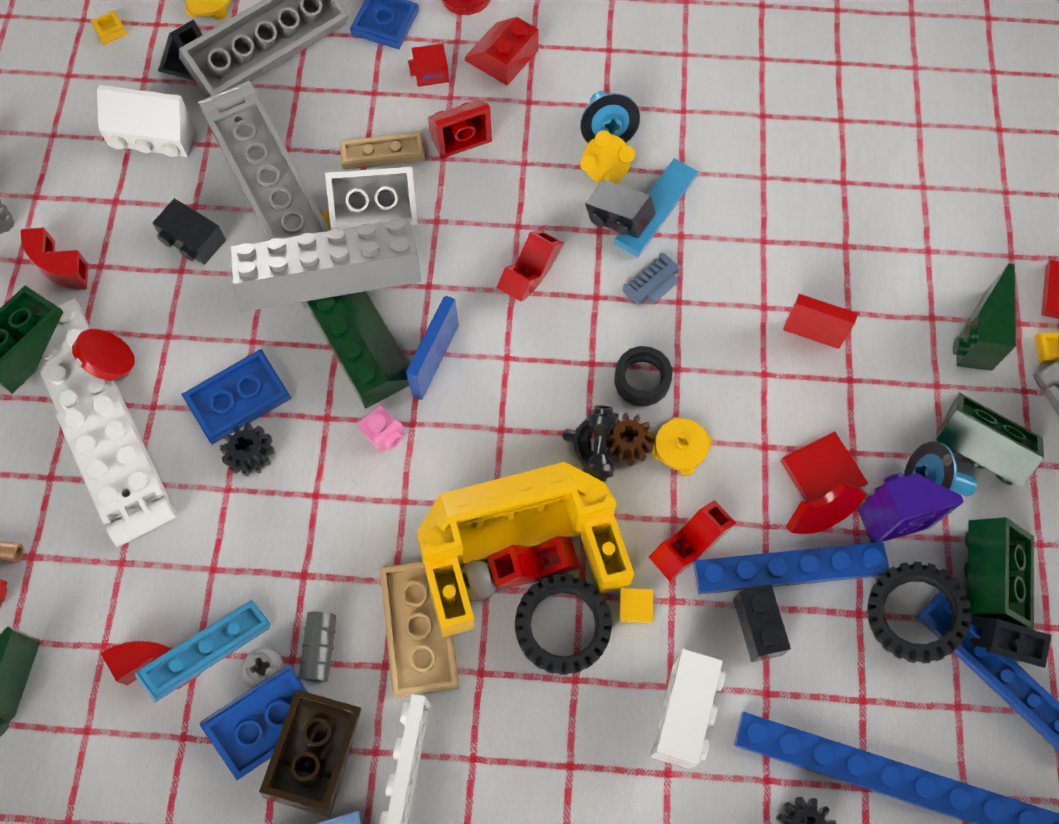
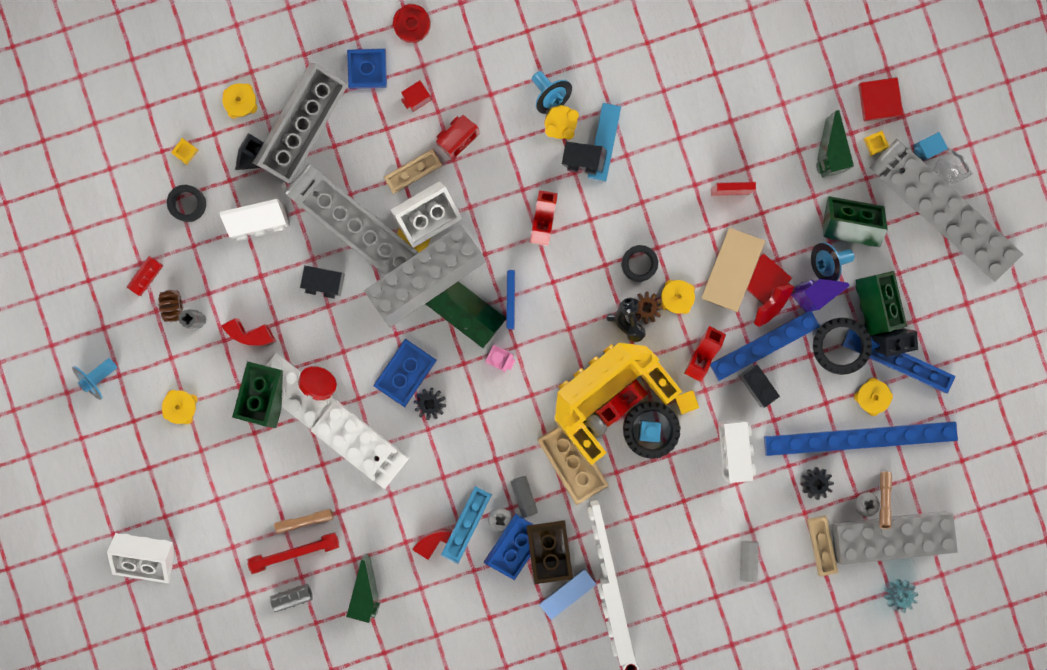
camera: 20 degrees left, 20 degrees up
(65, 65) = (172, 197): none -> black tyre
(505, 49) = (458, 62): red slope -> none
(558, 623) = (649, 431): none -> dark azure brick
(657, 285) = (626, 197): sand blue piece -> none
(780, 438) = (733, 270): none -> tan tile
(947, 721) = (873, 396): none -> yellow piece

